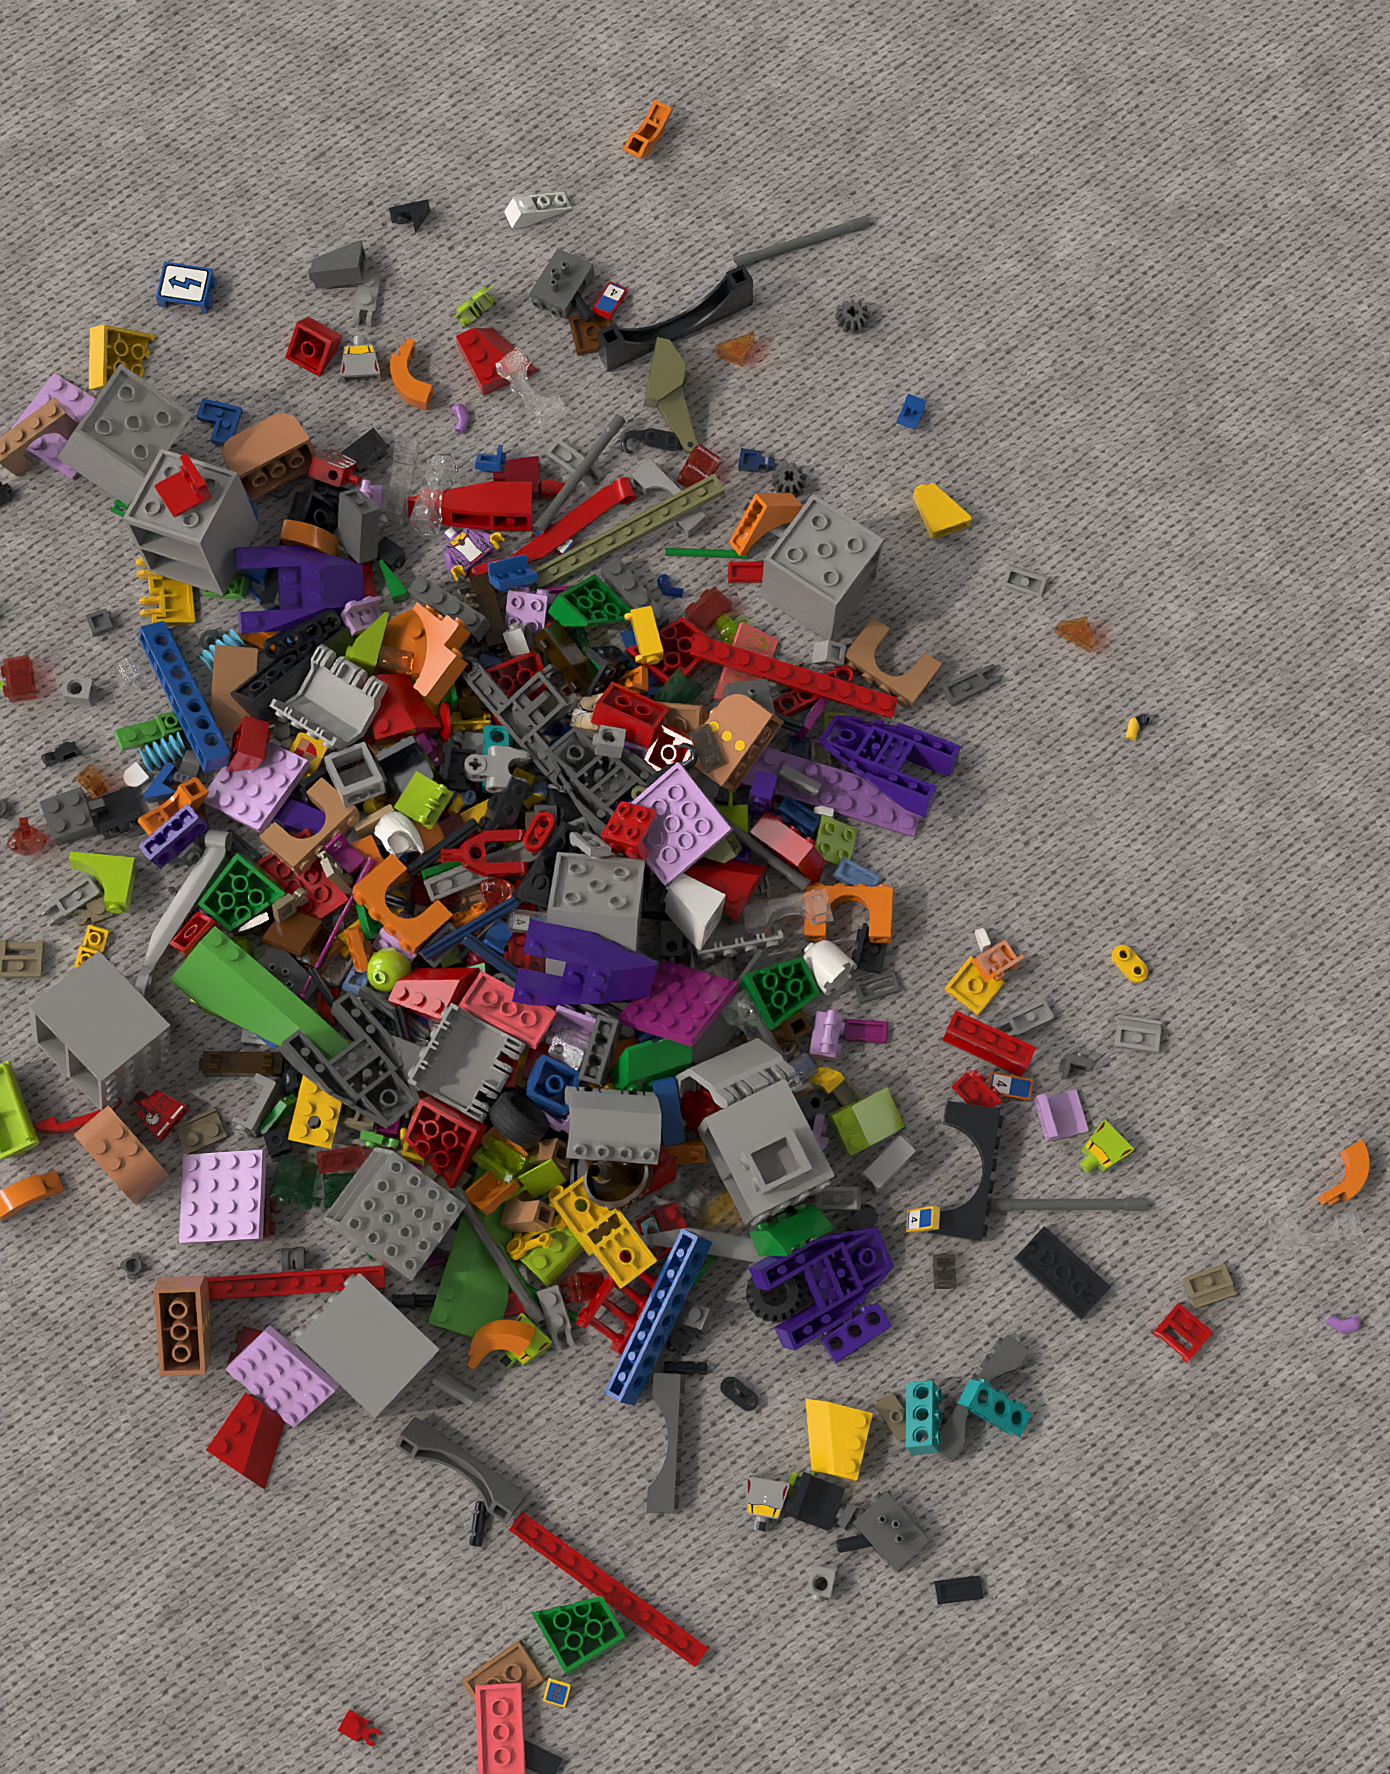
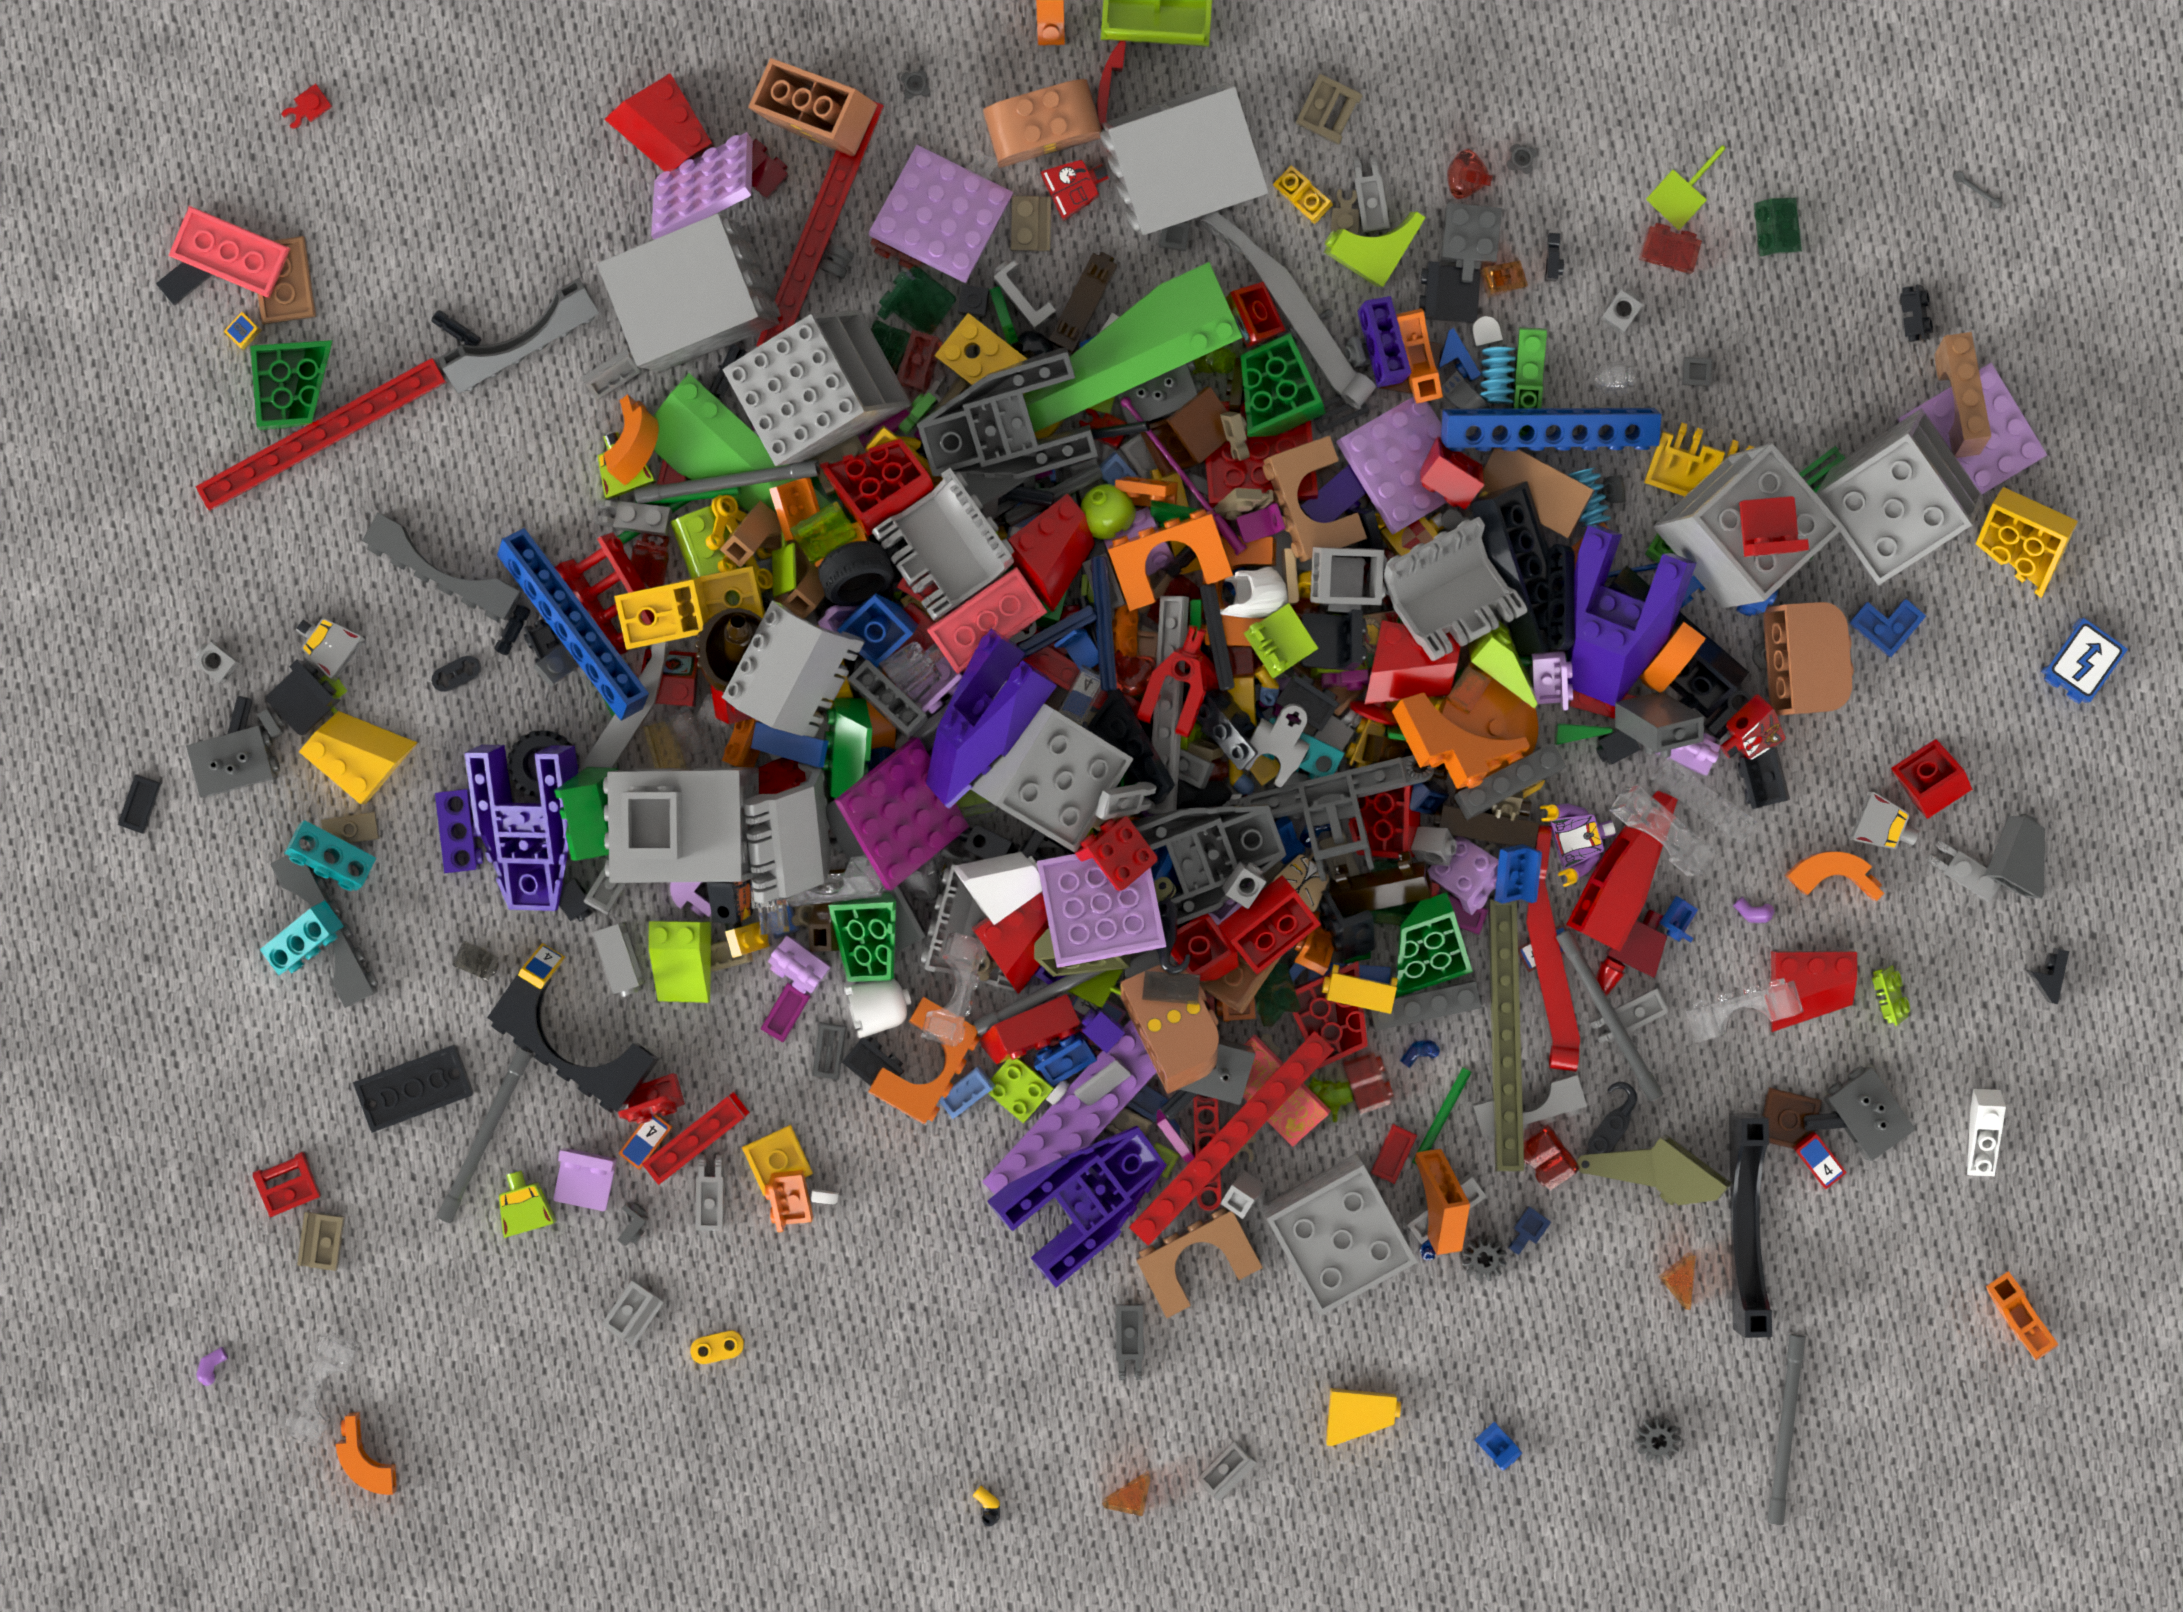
camera: 120 degrees right, 15 degrees up
(539, 834) = (1175, 752): red plate -> none

